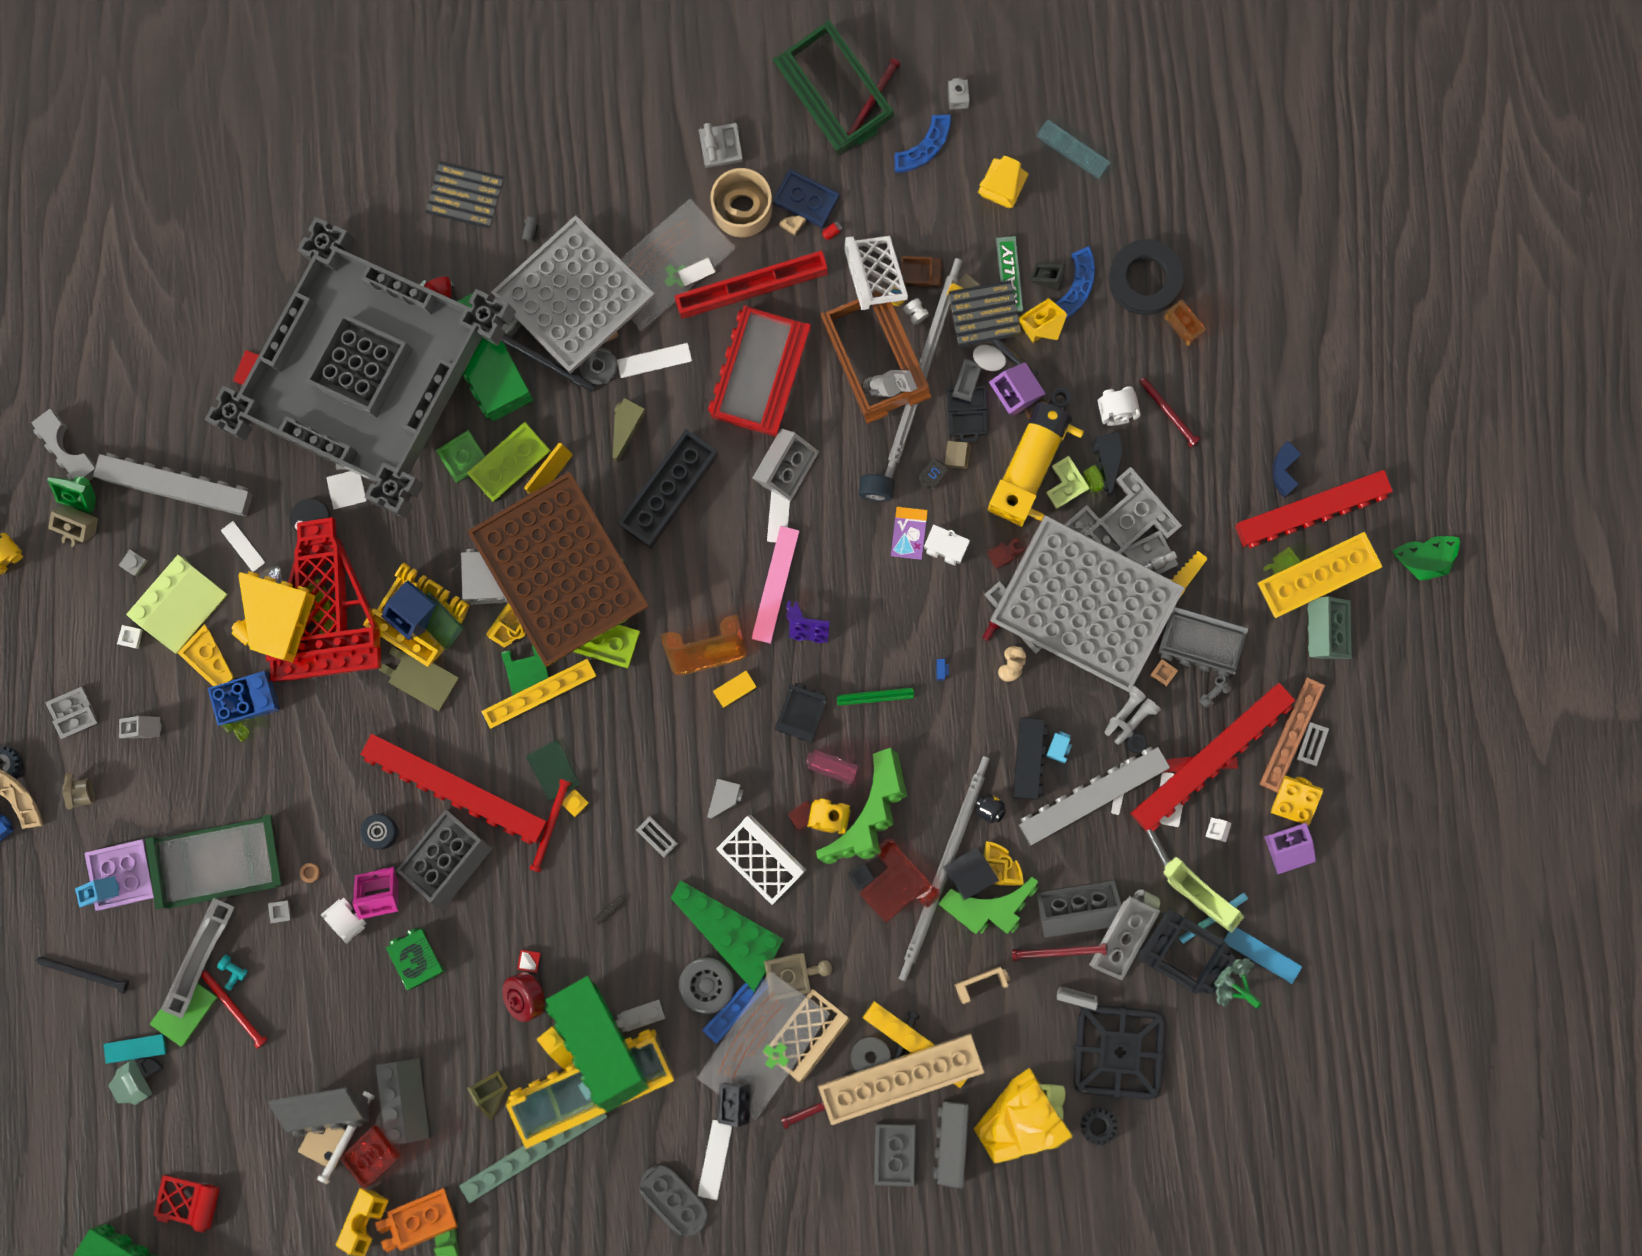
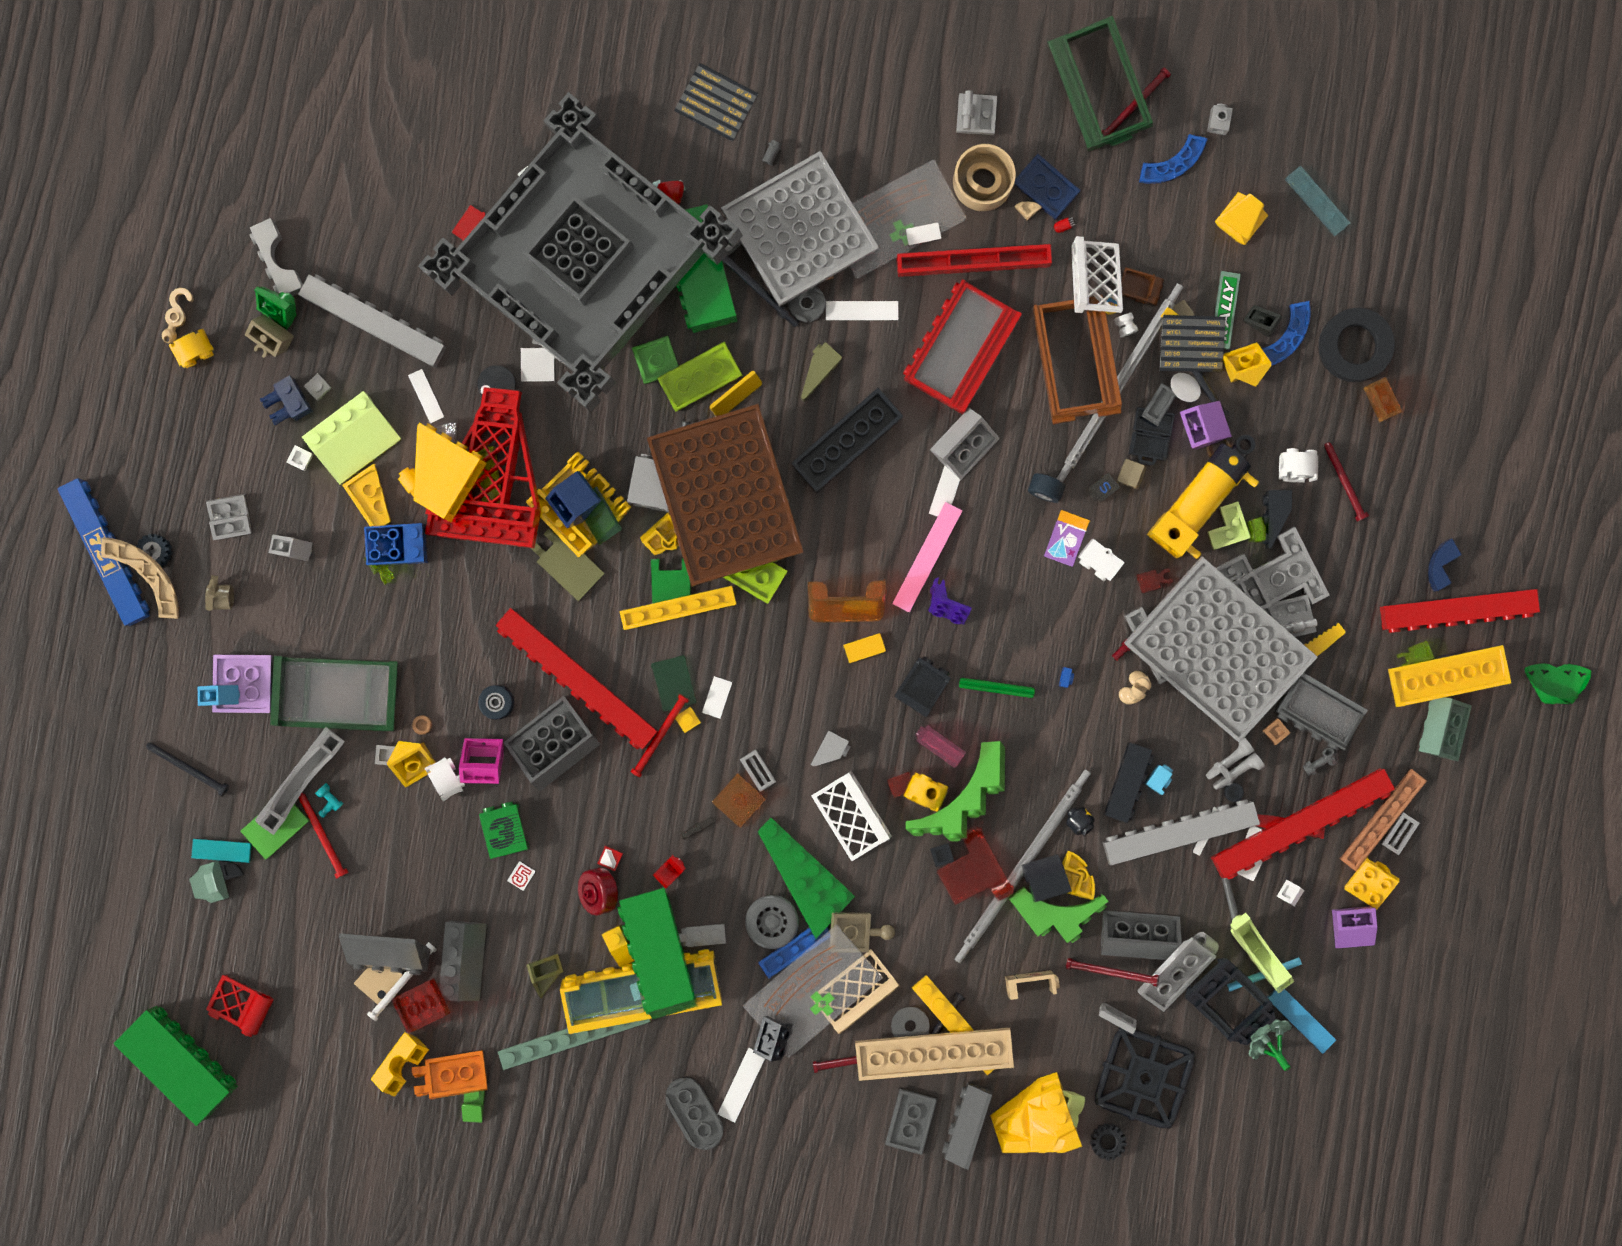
camera: 10 degrees right, 5 degrees up
(112, 583) = (292, 397): none -> dark blue brick
(304, 912) = (409, 762): none -> yellow slope
(443, 1001) = (521, 875): none -> white sticker
(591, 959) = (669, 871): none -> red bracket
(599, 773) = (717, 697): none -> white sticker
(644, 871) = (738, 800): none -> clear orange tile
(889, 384) = (1083, 391): light grey plate -> none

